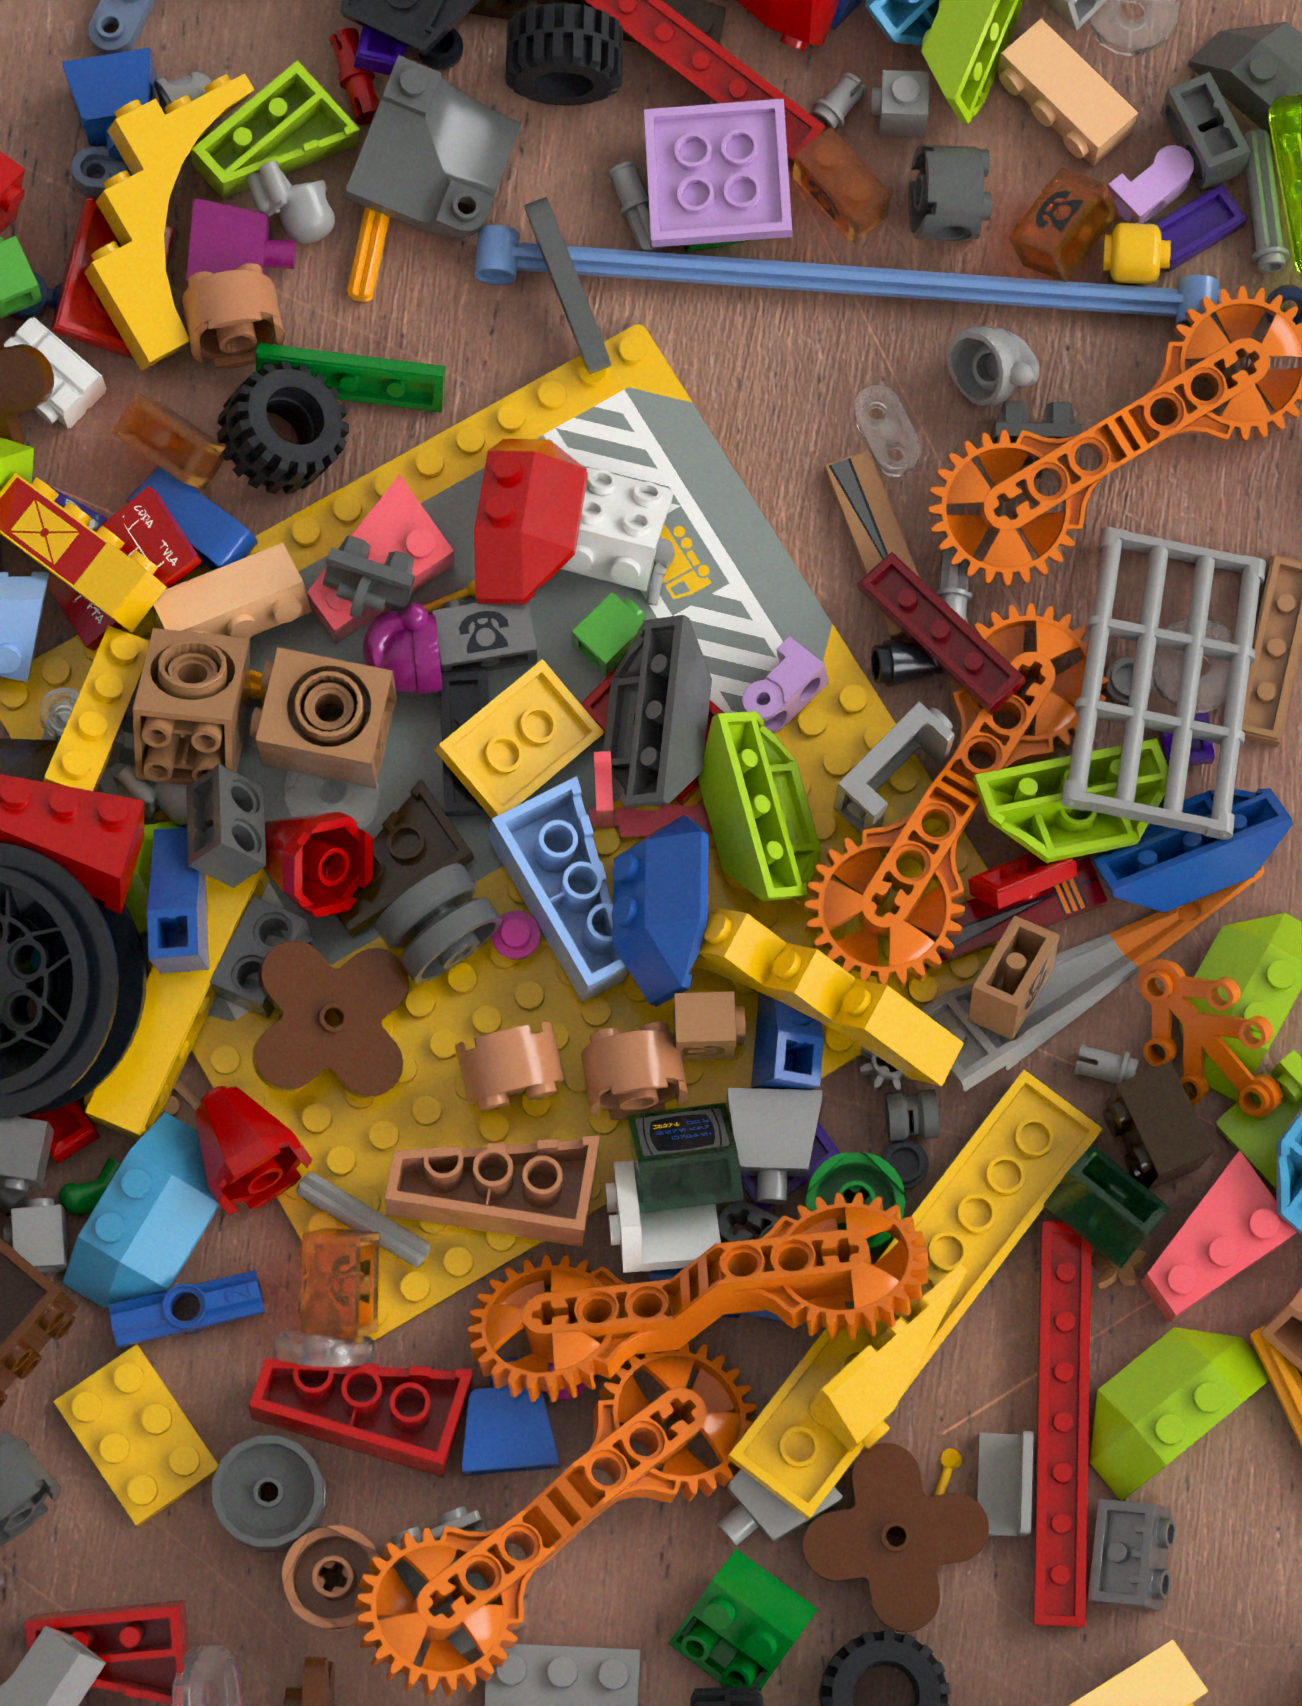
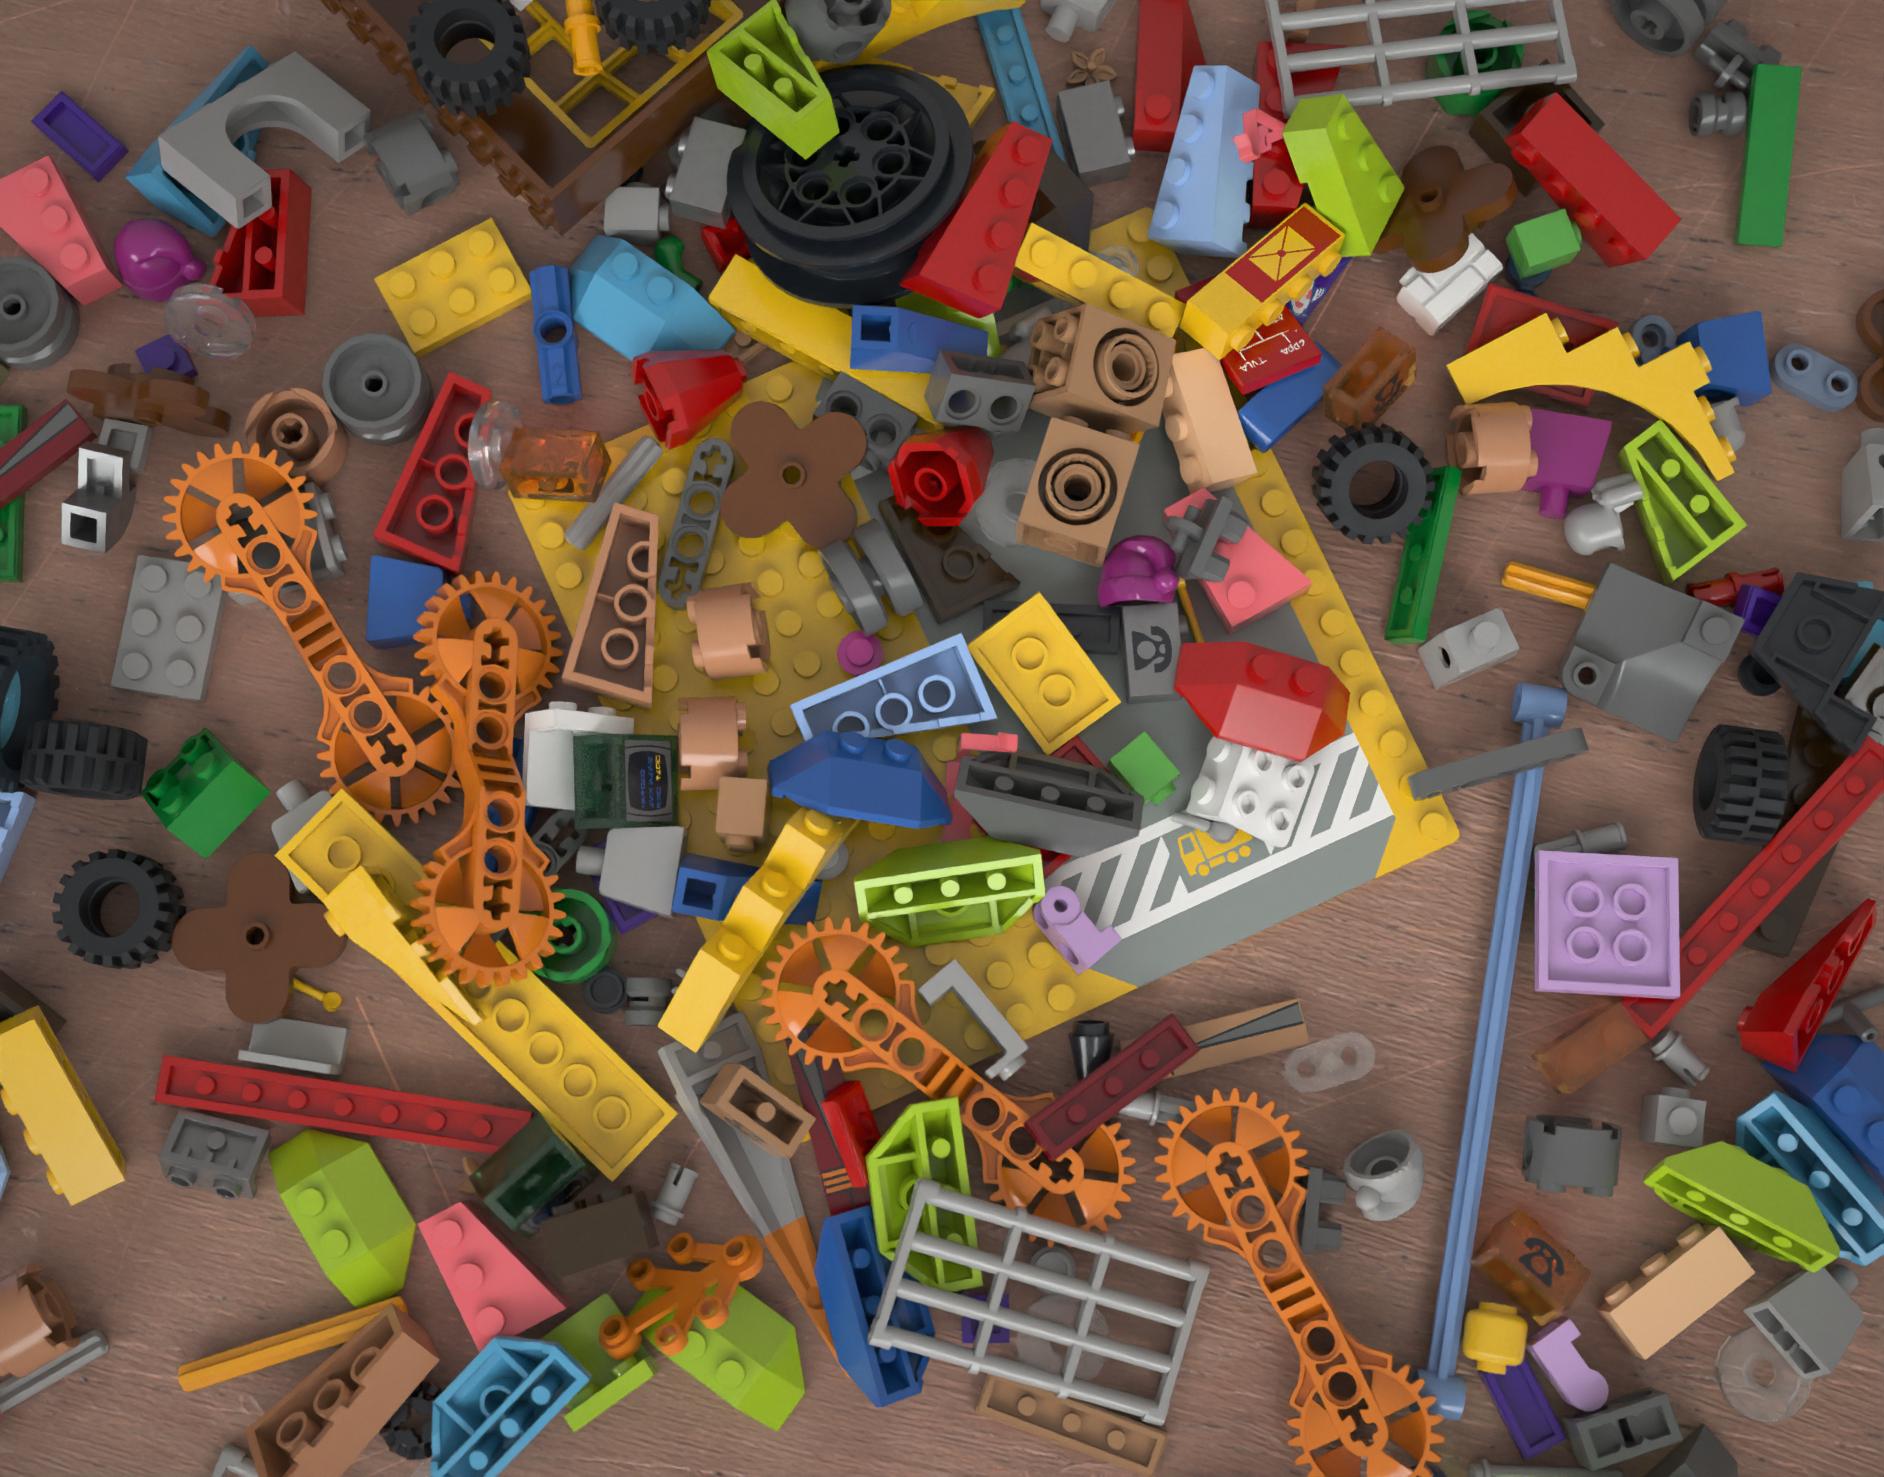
camera: 95 degrees right, 5 degrees up
(391, 1119) = (689, 522): none -> dark grey beam
(443, 318) = (1471, 648): none -> light grey torso

